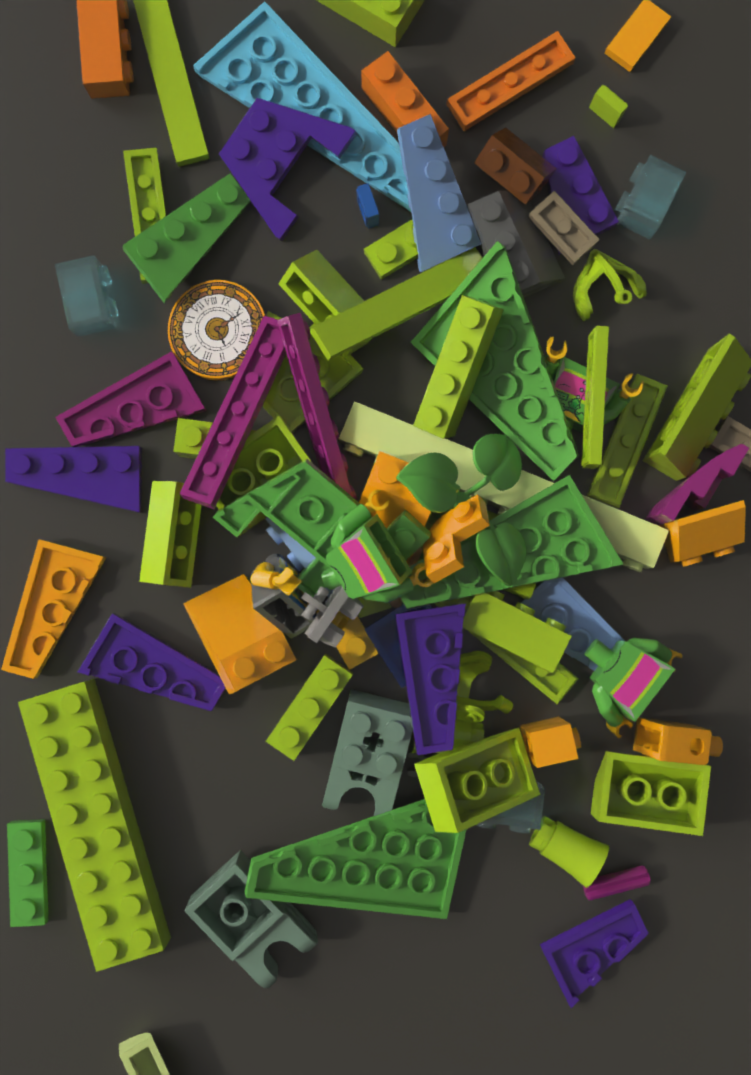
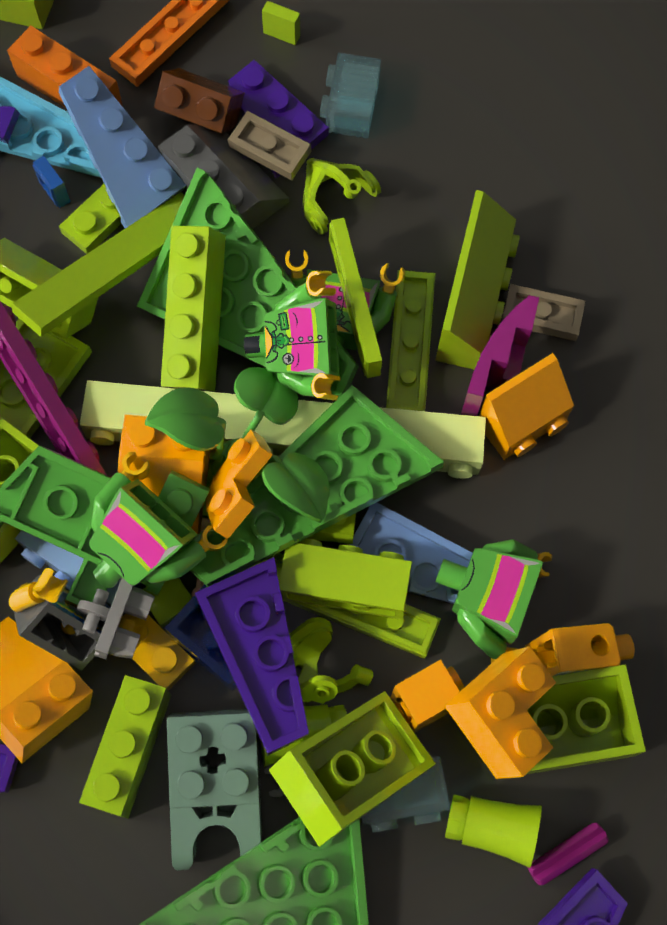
camera: 15 degrees left, 15 degrees down
(539, 427) = (301, 339): none -> torso
(600, 780) = (496, 715): none -> light orange brick

